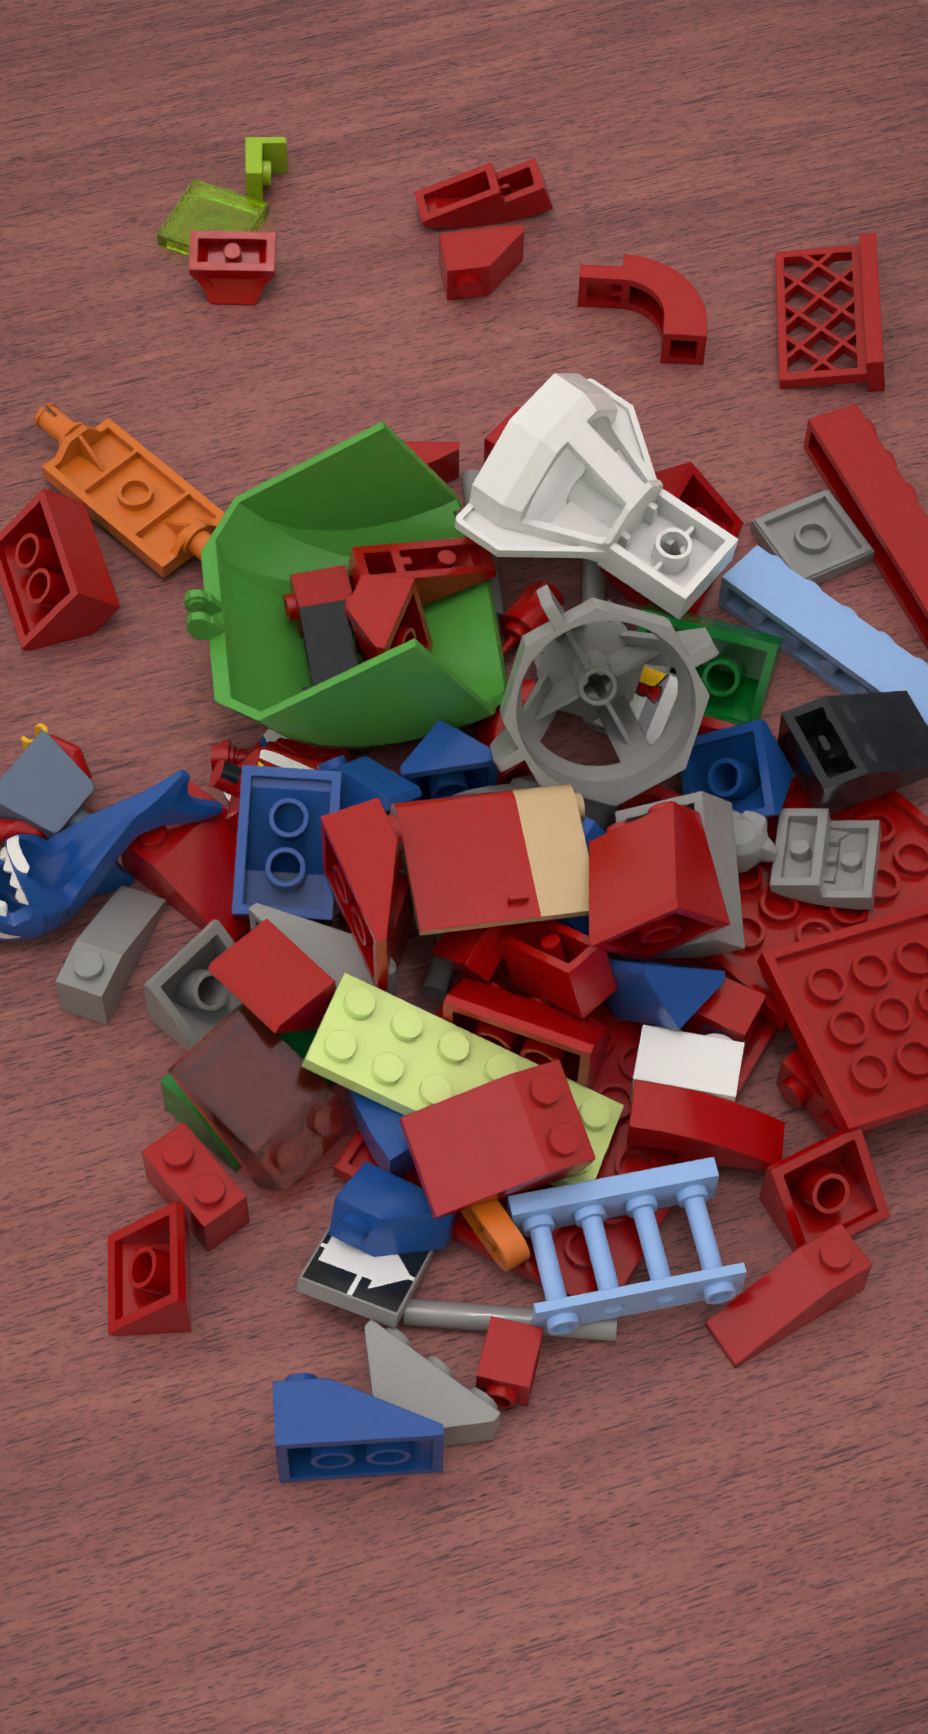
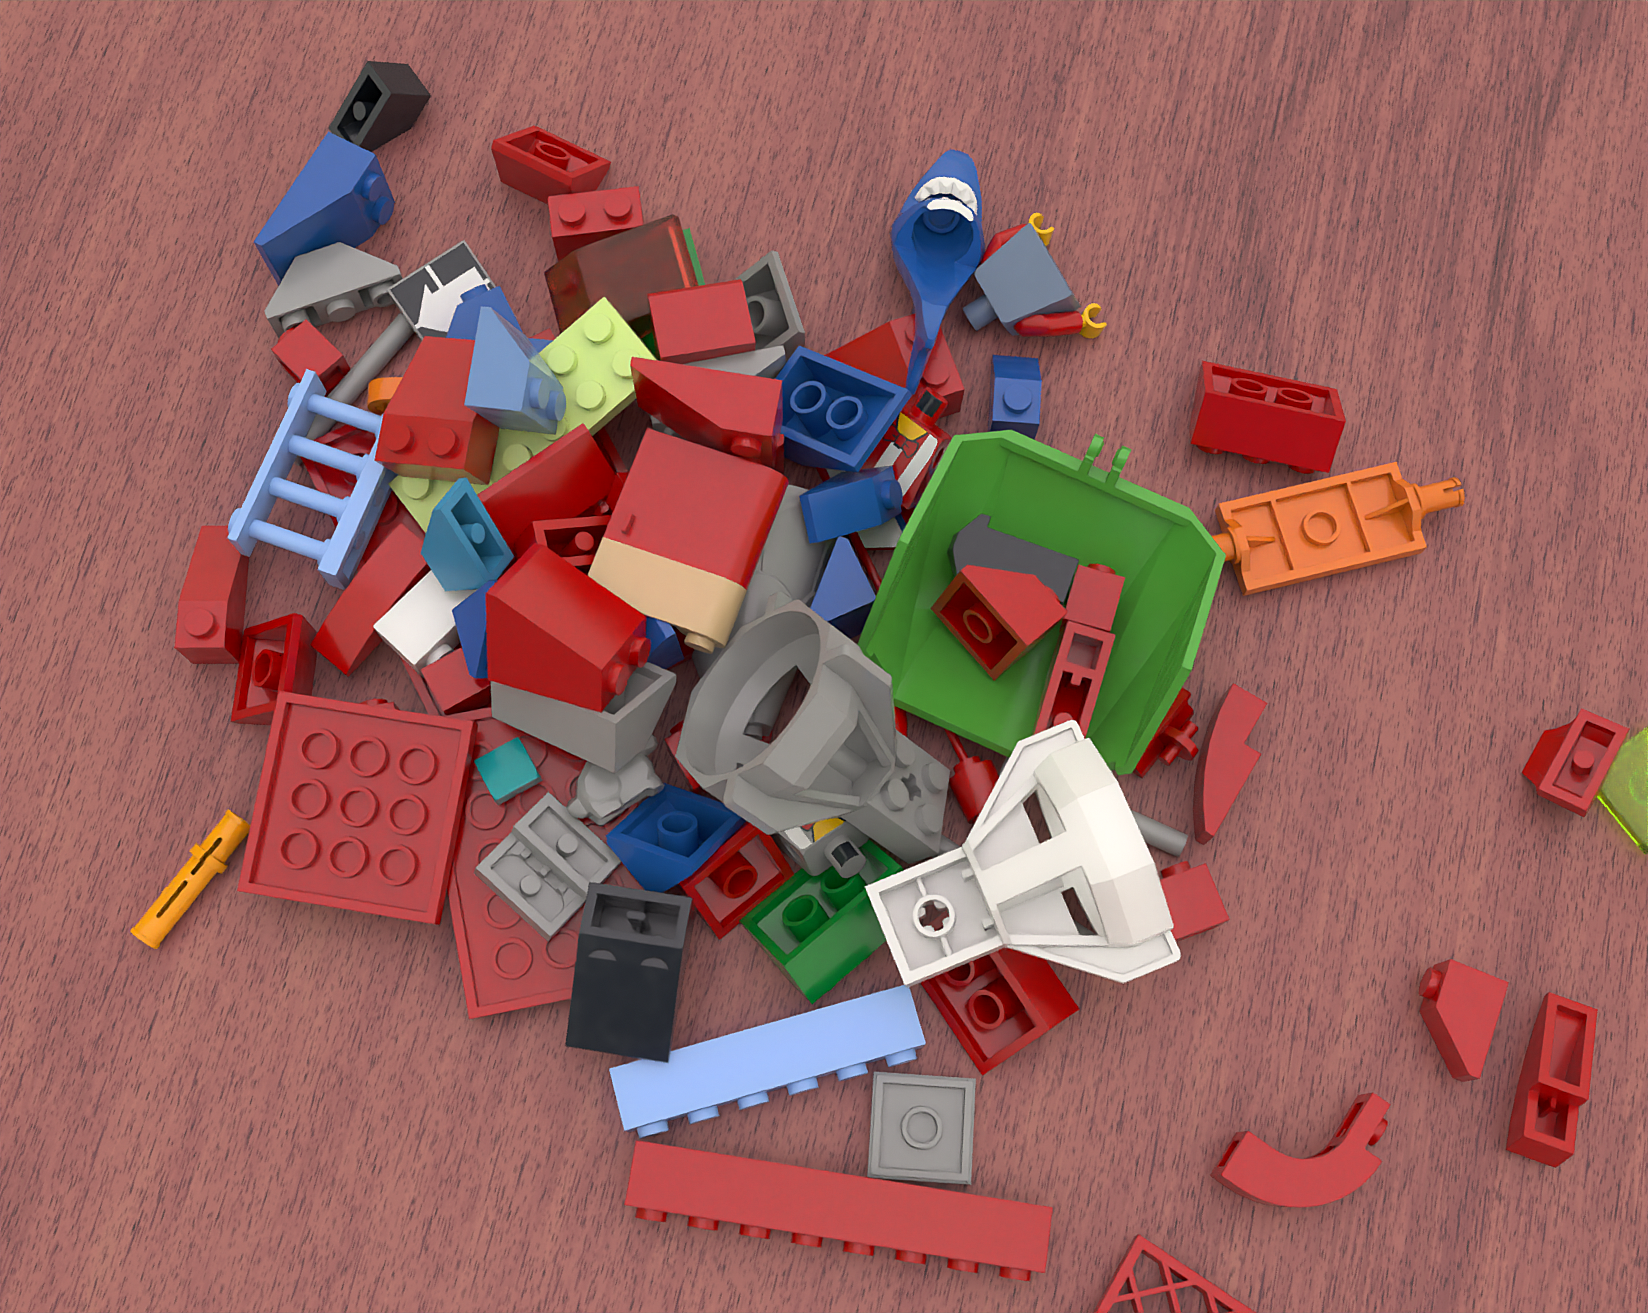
camera: 120 degrees right, 15 degrees up
(108, 954) = (845, 267): light grey slope -> none
(153, 754) = (1015, 395): none -> blue slope
(189, 1483) = (380, 105): none -> black slope
(454, 1056) = (511, 380): none -> medium blue slope
(622, 1034) = (463, 541): none -> dark azure slope
(776, 918) = (508, 771): none -> teal slope

